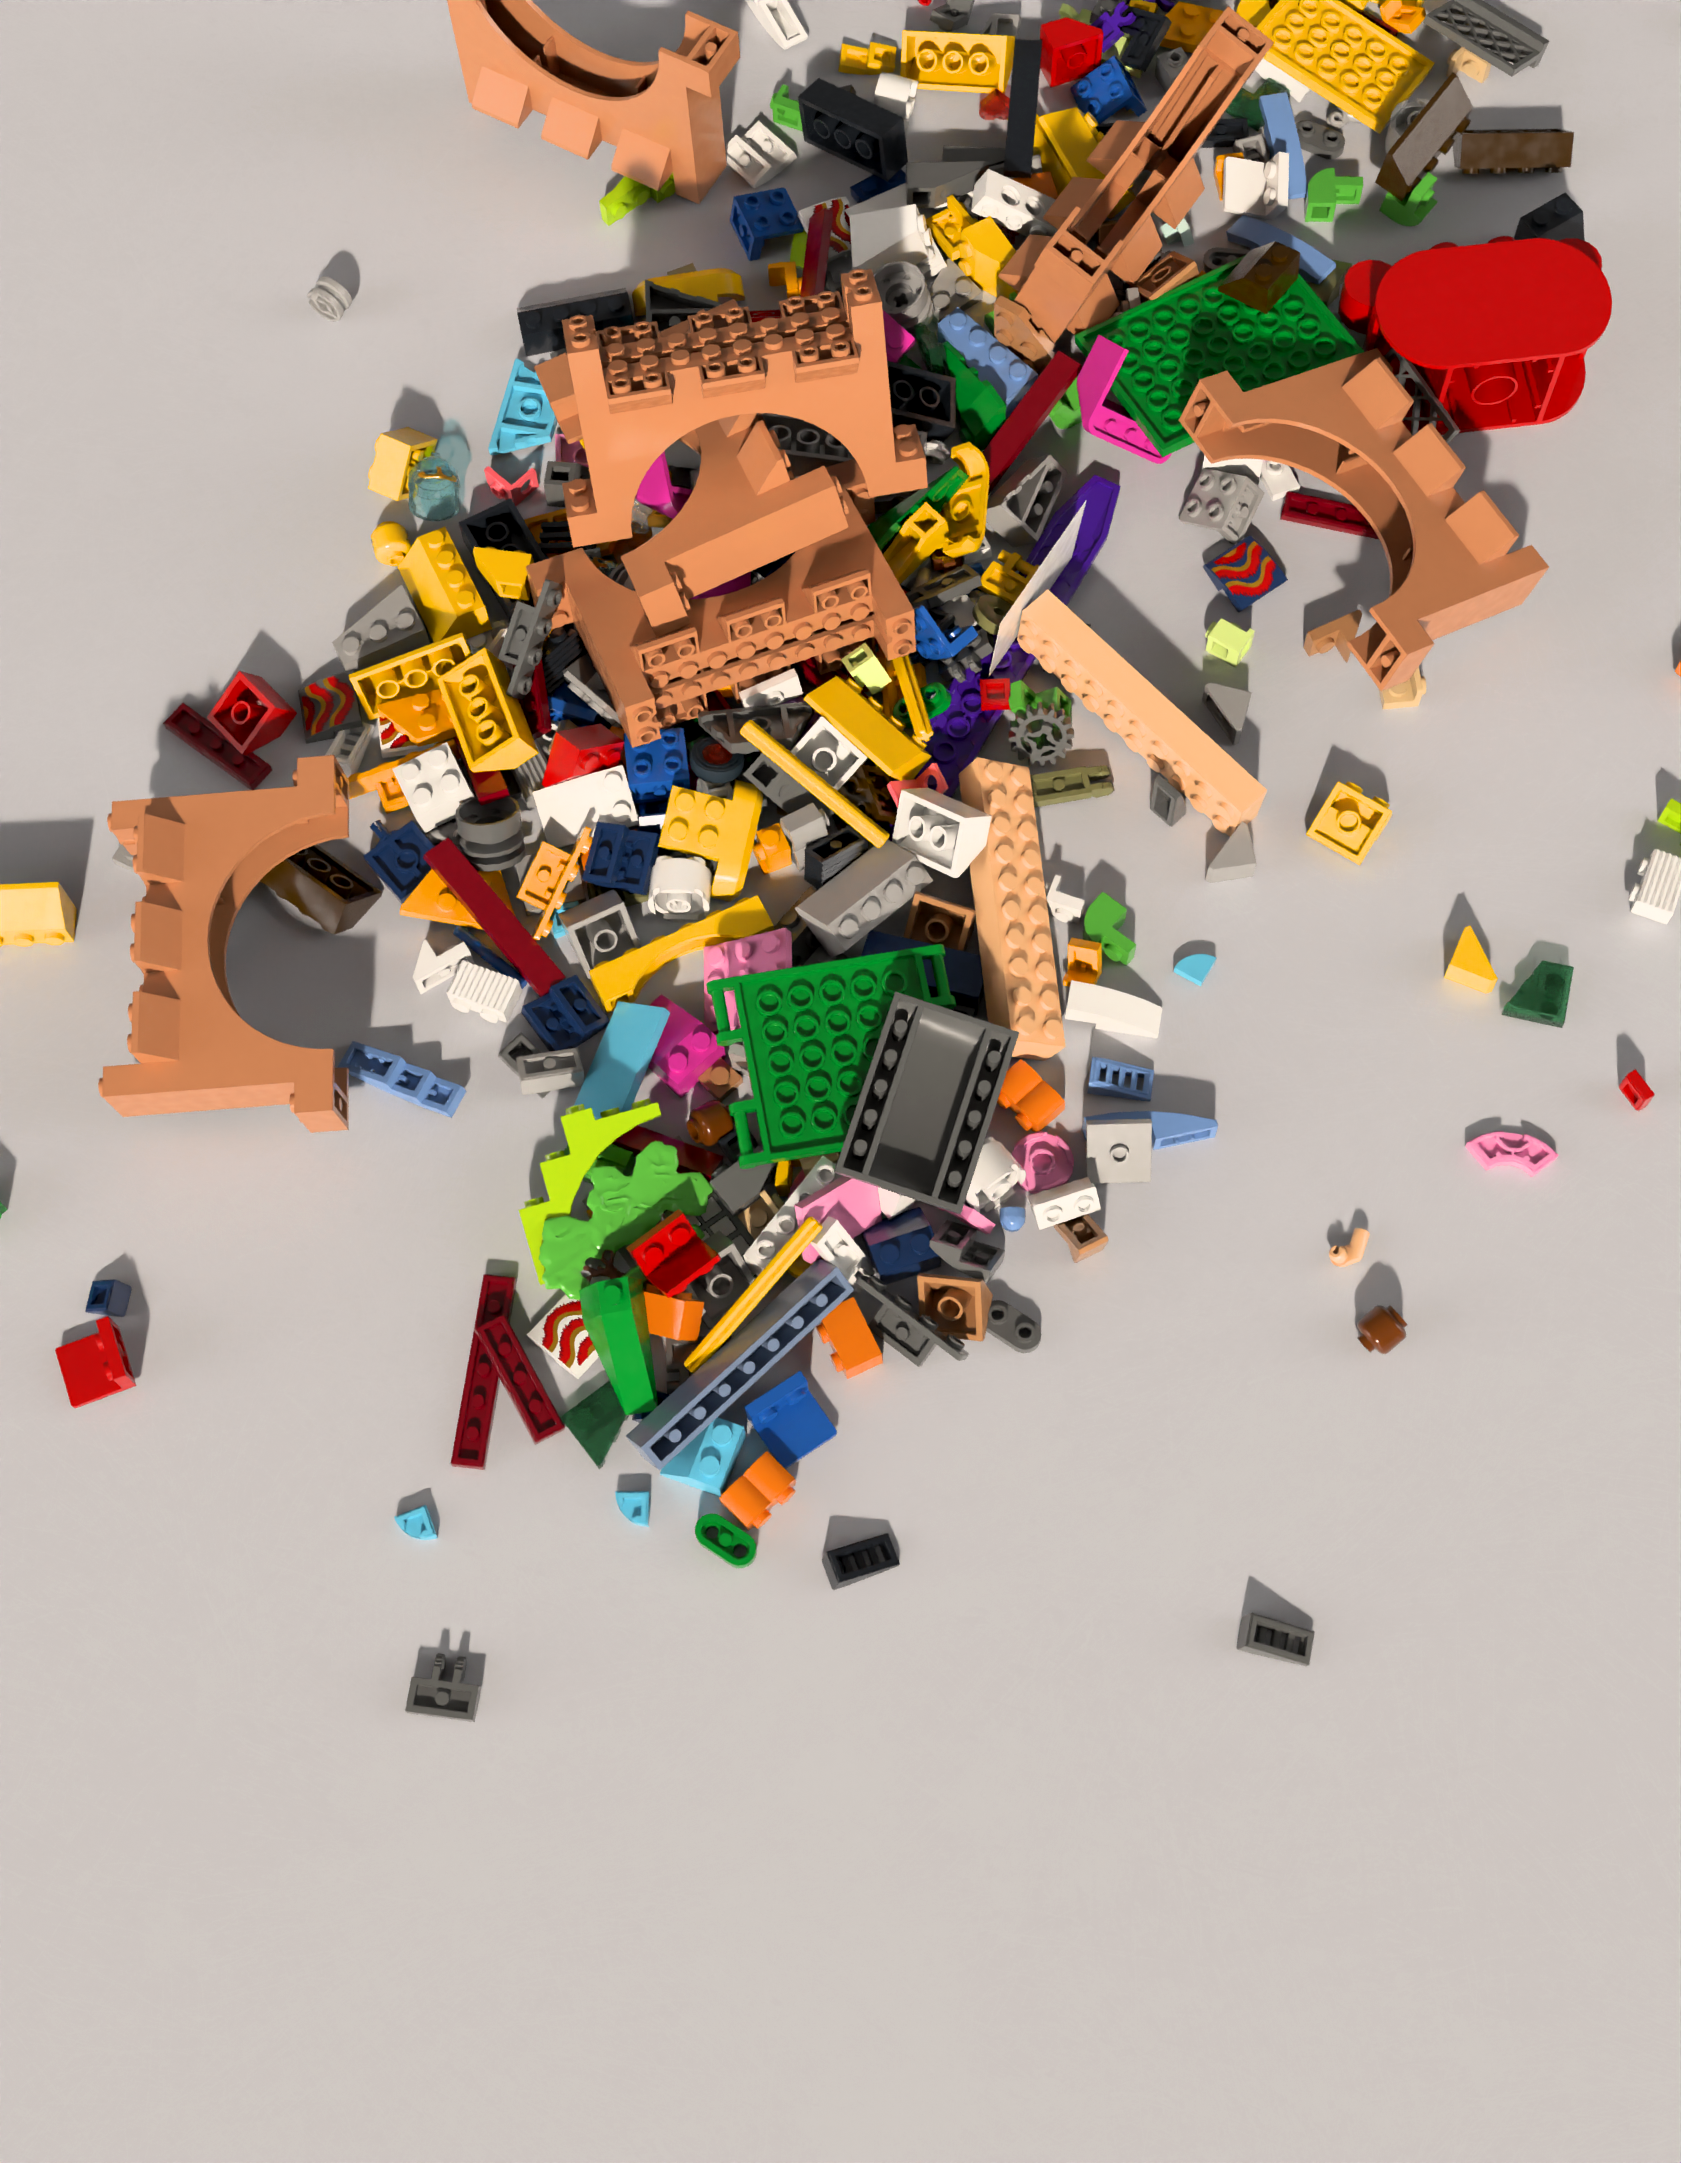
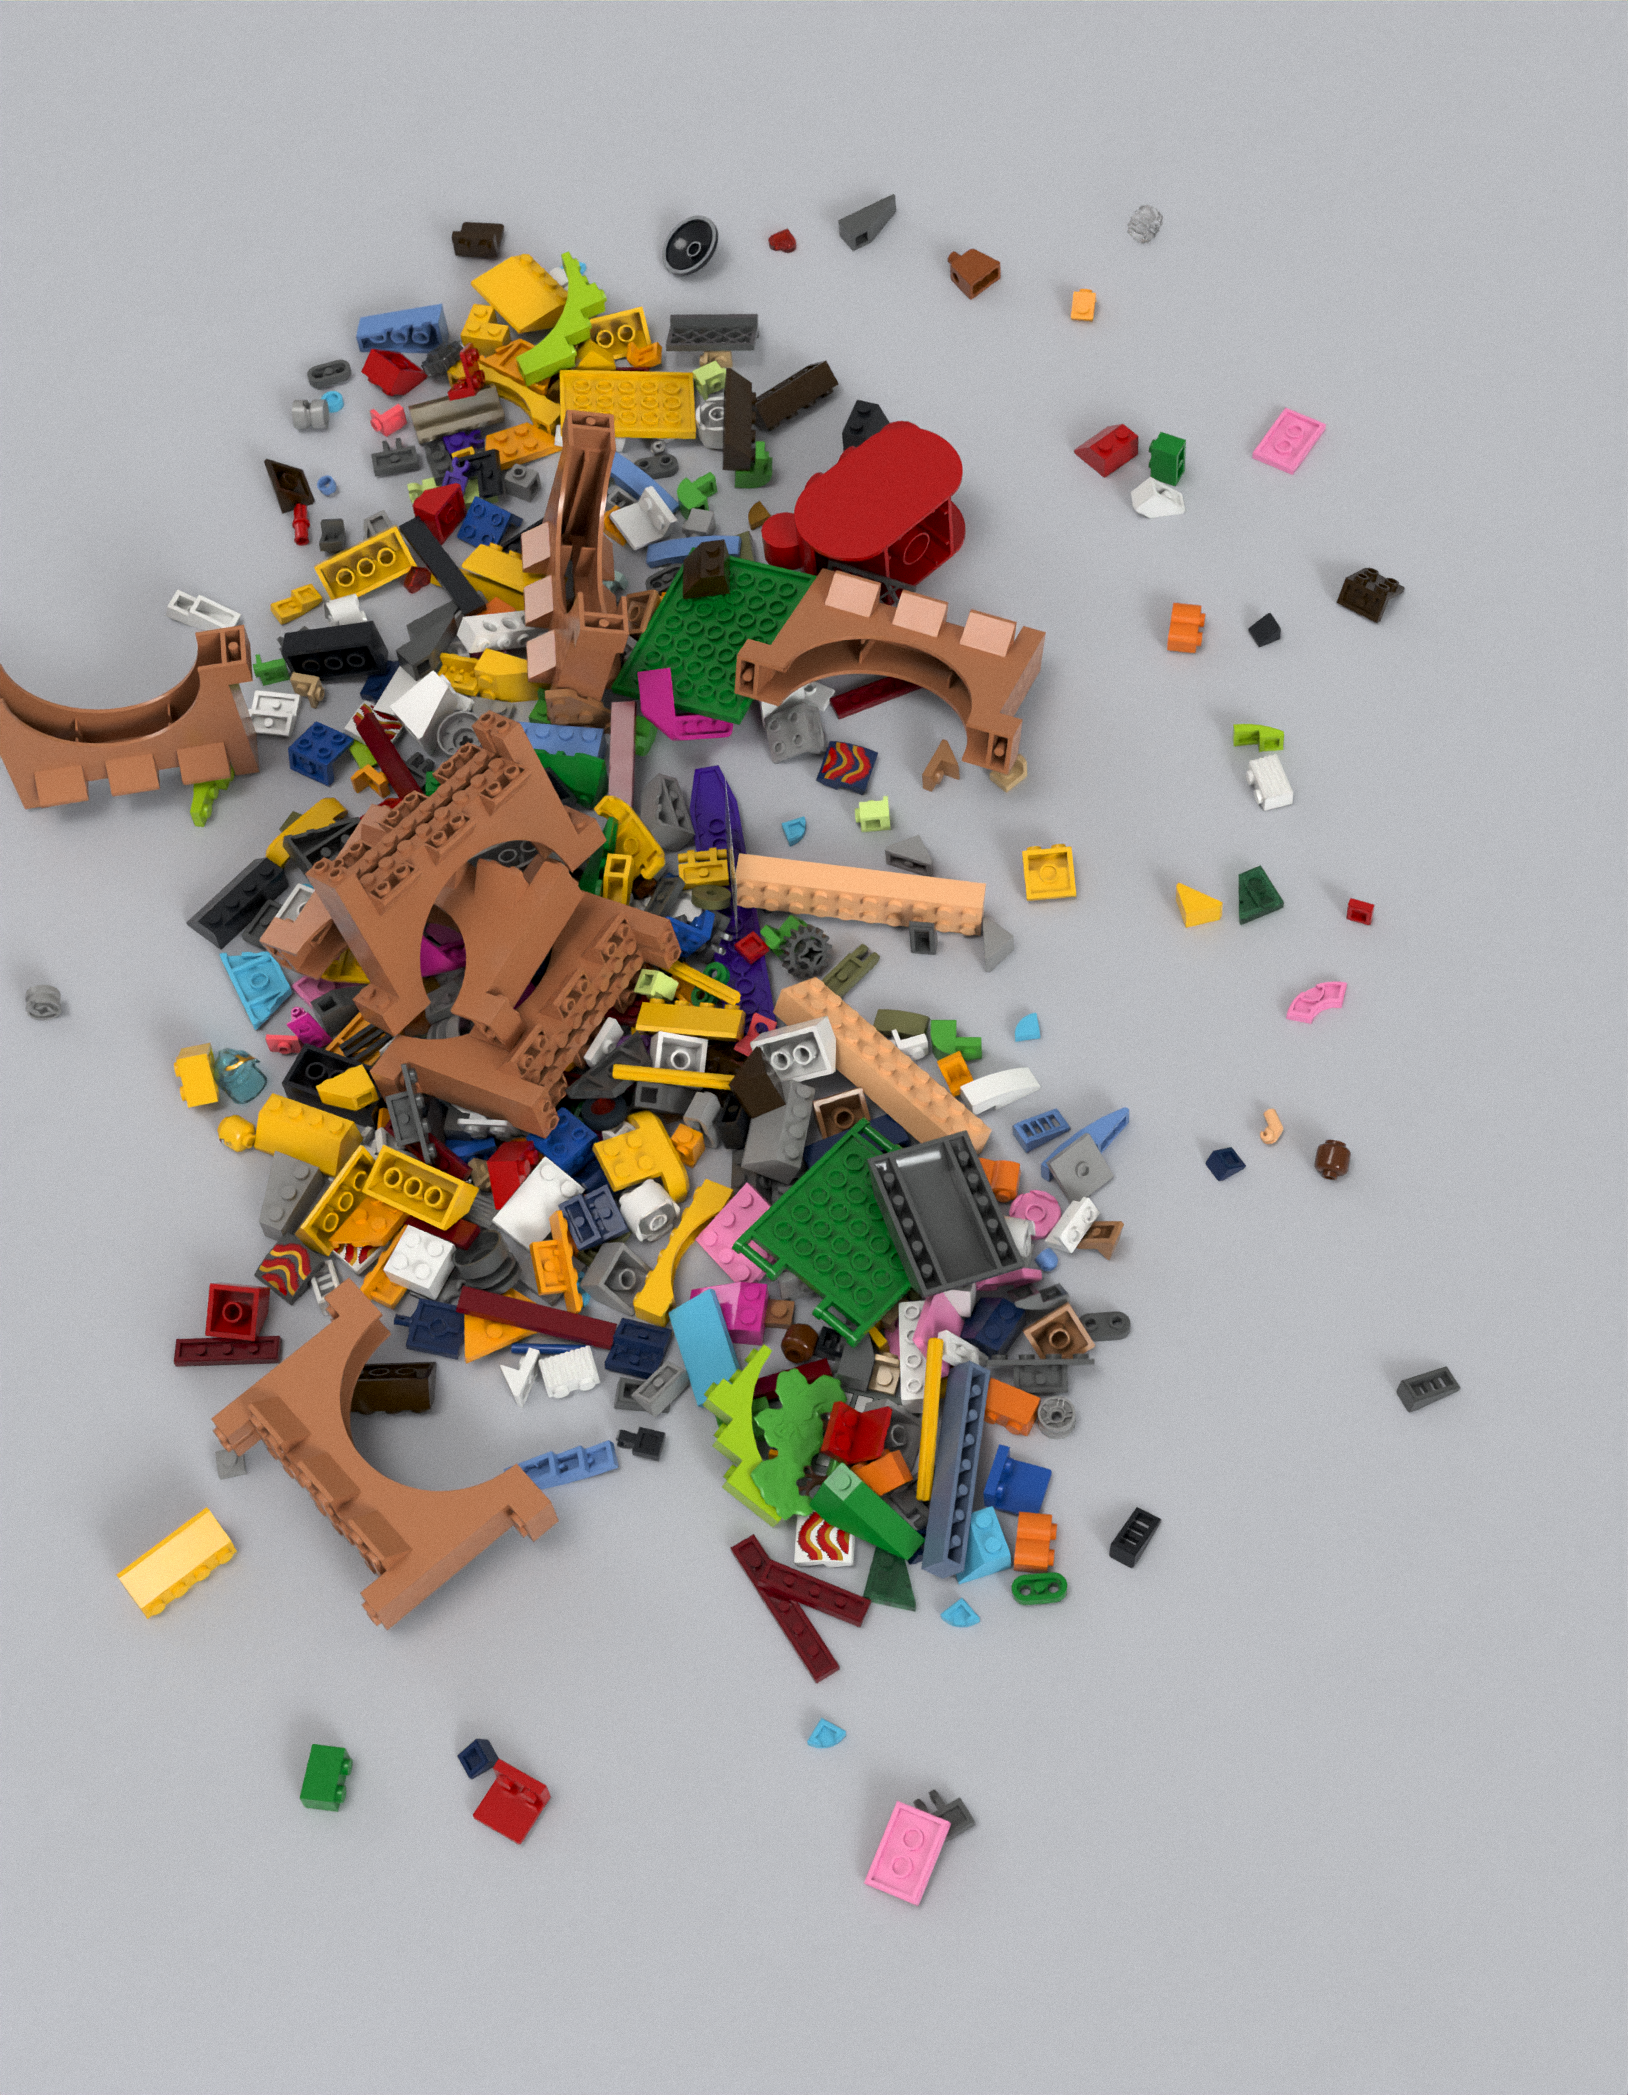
camera: 35 degrees left, 10 degrees down
(387, 1700) = (907, 1853): none -> bright pink tile
(492, 1113) = (645, 1443): none -> black plate
(525, 487) = (307, 1028): none -> dark pink hinge
(808, 150) = (308, 686): none -> tan bracket
(872, 838) = (757, 1085): none -> dark brown slope
(884, 1370) = (1056, 1406): none -> light grey wheel
(1077, 876) = (906, 1023): none -> olive slope
(1141, 603) = (794, 830): none -> medium azure tile
(1272, 1250) = (1224, 1163): none -> dark blue slope
(1309, 225) = (699, 523): none -> light grey brick
(1377, 251) = (757, 515): none -> pearl gold tile
(1440, 72) = (709, 379): none -> yellowish green brick

